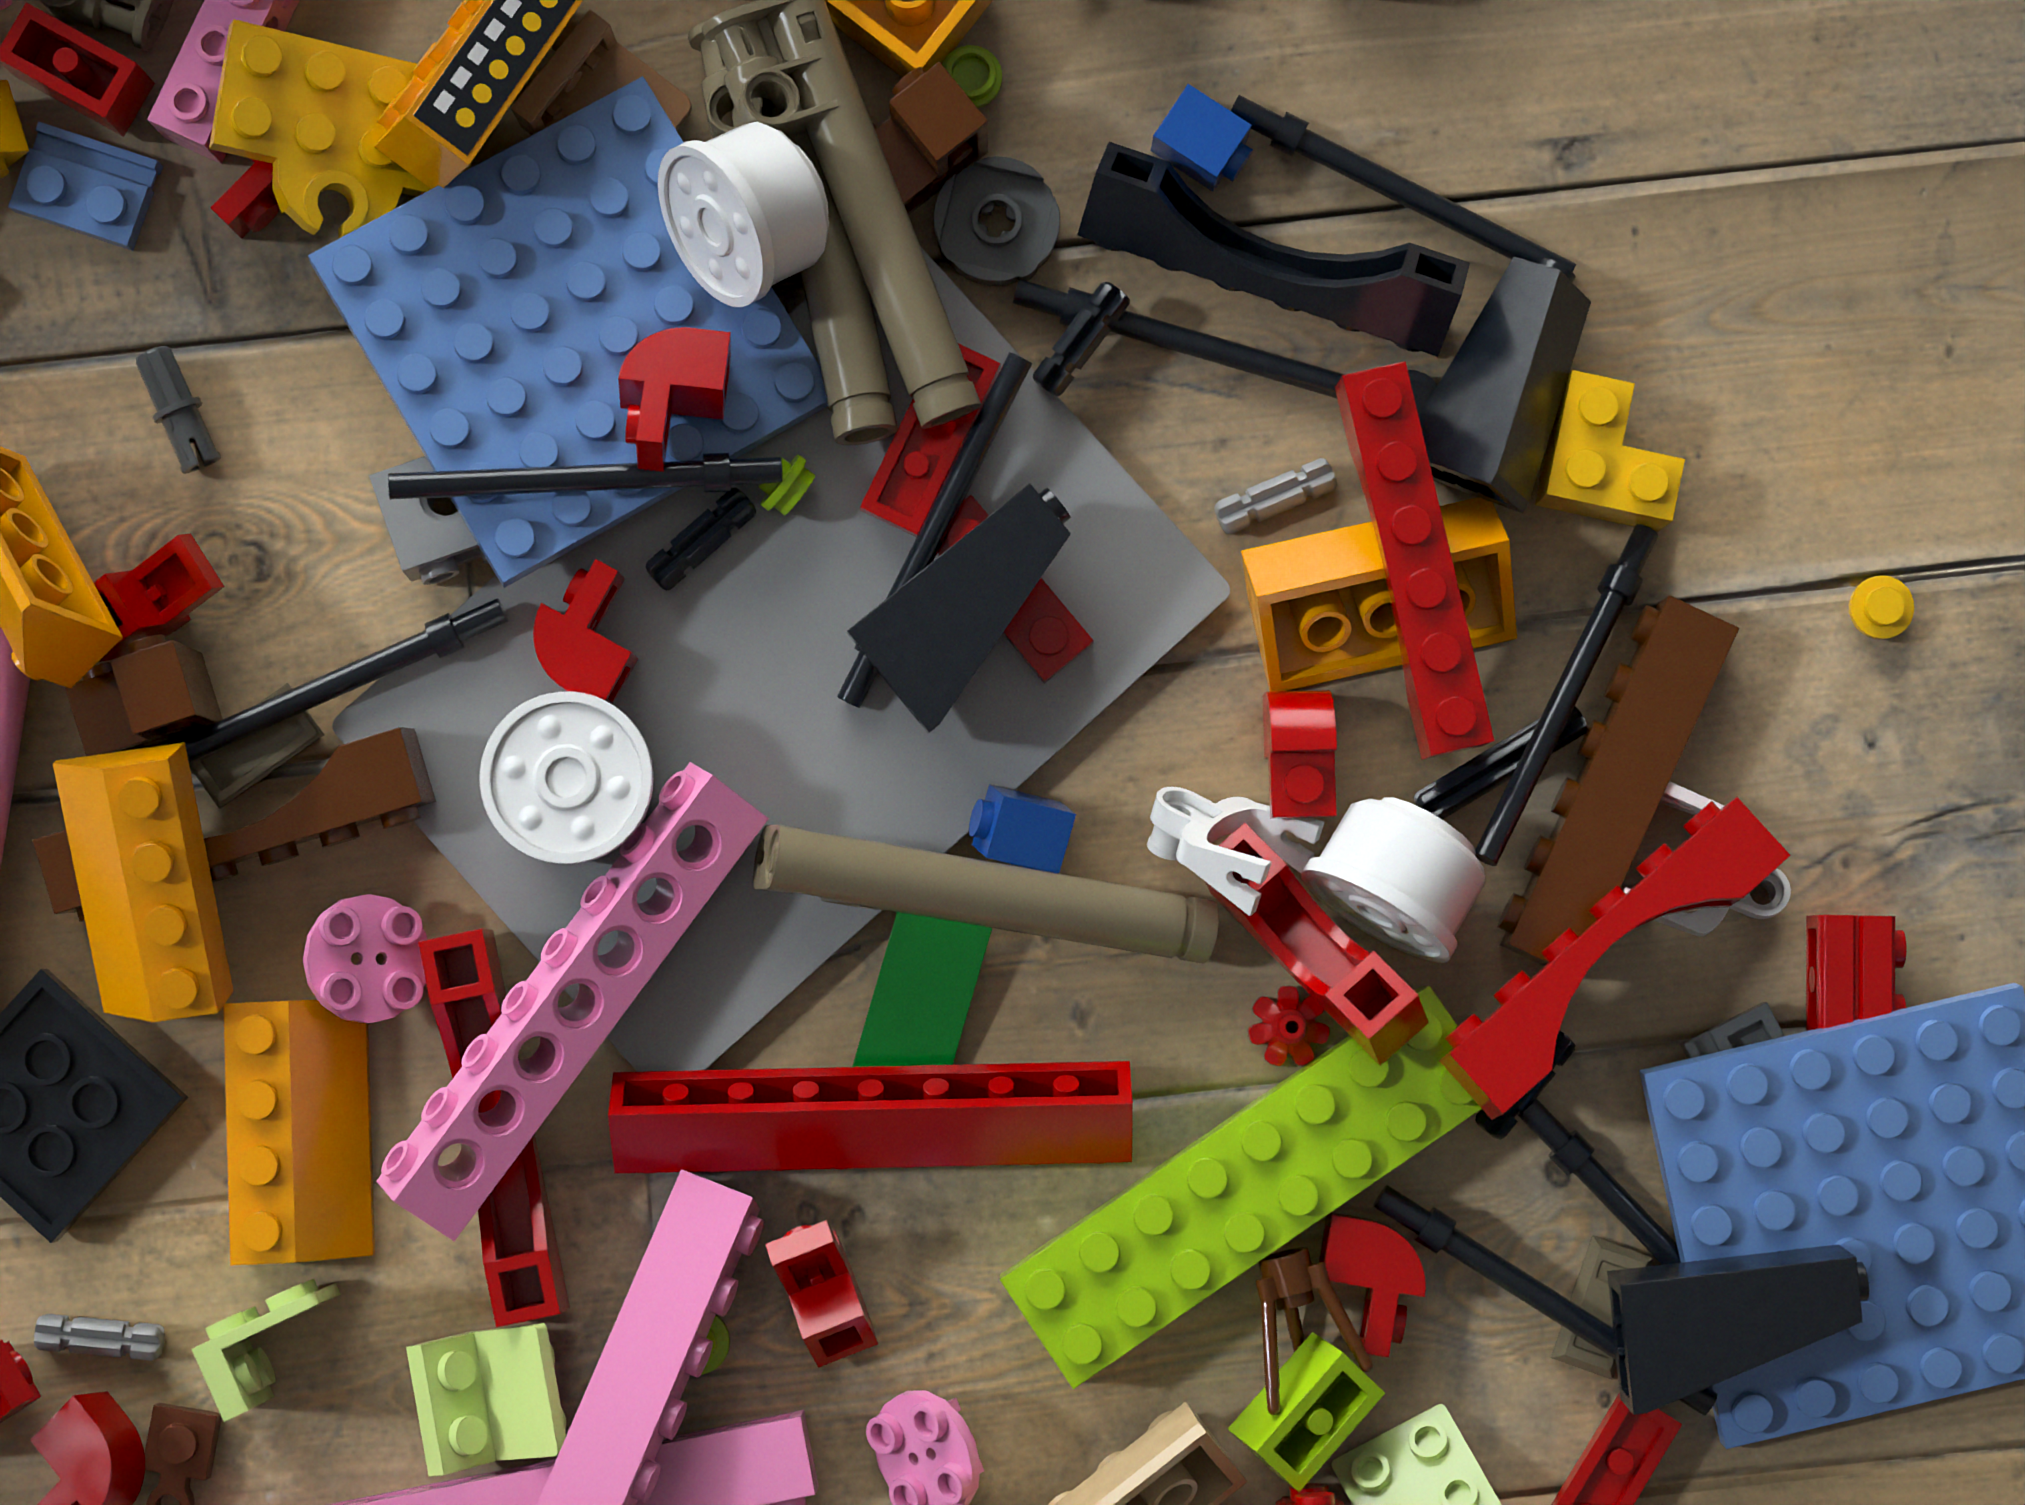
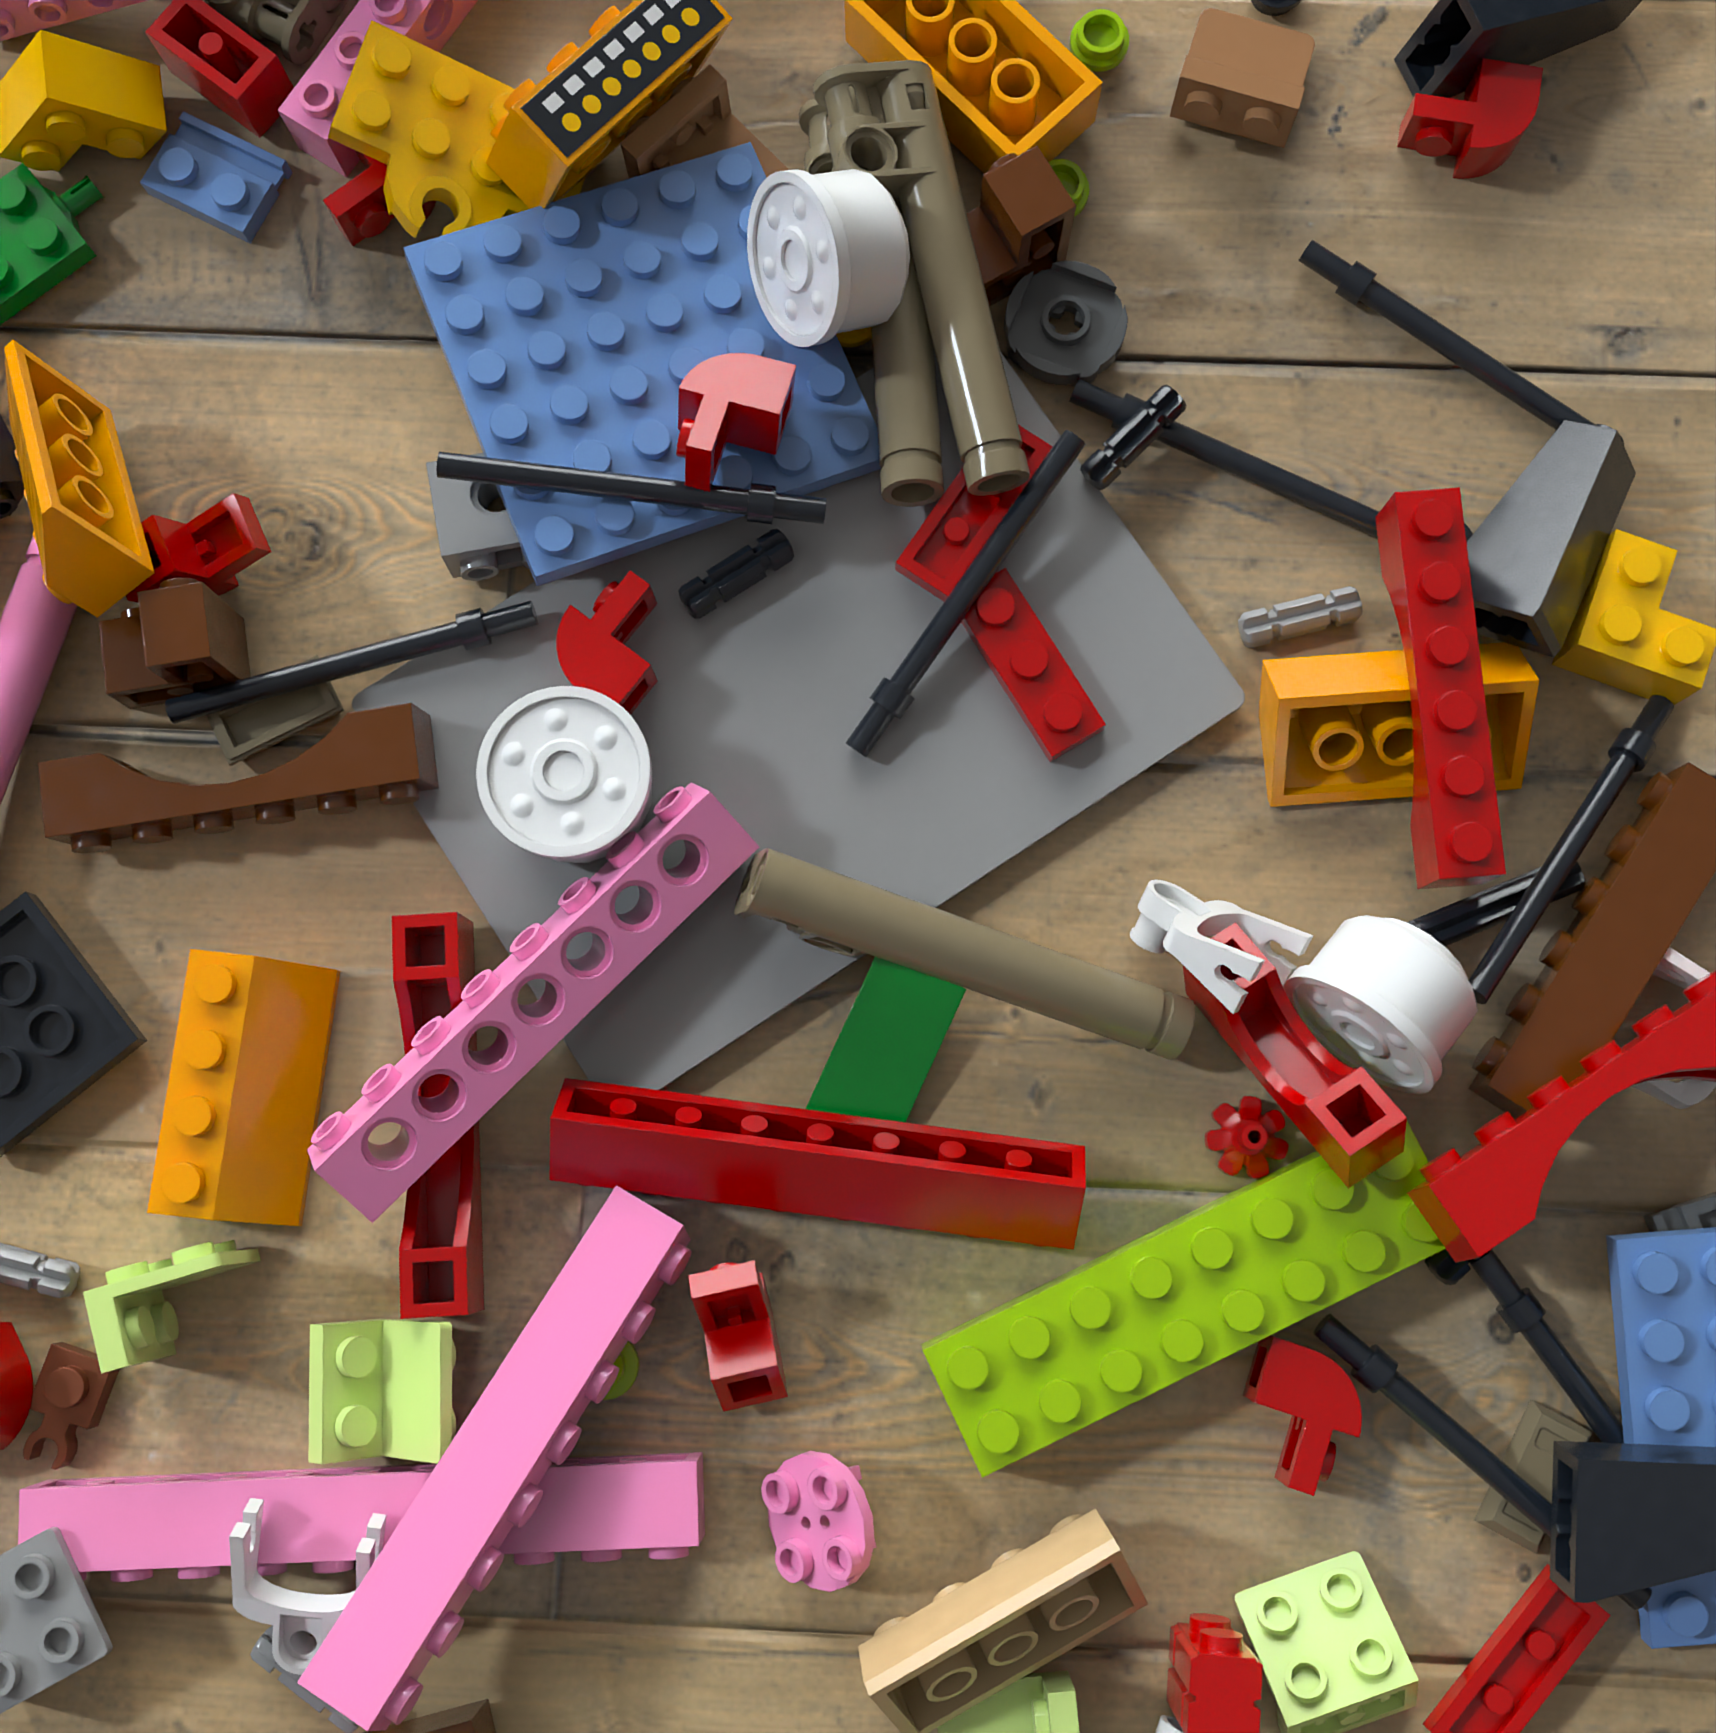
camera: 15 degrees right, 5 degrees down
(145, 883) = (136, 817): light orange slope -> none
(176, 408) = (260, 385): dark grey axle -> none
(368, 989) = (337, 958): bright pink plate -> none
(794, 484) = (826, 537): lime plate -> none
(955, 609) = (976, 666): black slope -> none
(1021, 829) = (1008, 898): blue brick -> none
(1203, 139) = (1273, 273): blue brick -> none
(1287, 1285) = (1216, 1403): reddish brown plant -> none
(1300, 753) = (1298, 858): red brick -> none
(1319, 1408) = (1220, 1539): lime brick -> none
(1391, 293) = (1443, 438): black arch -> none

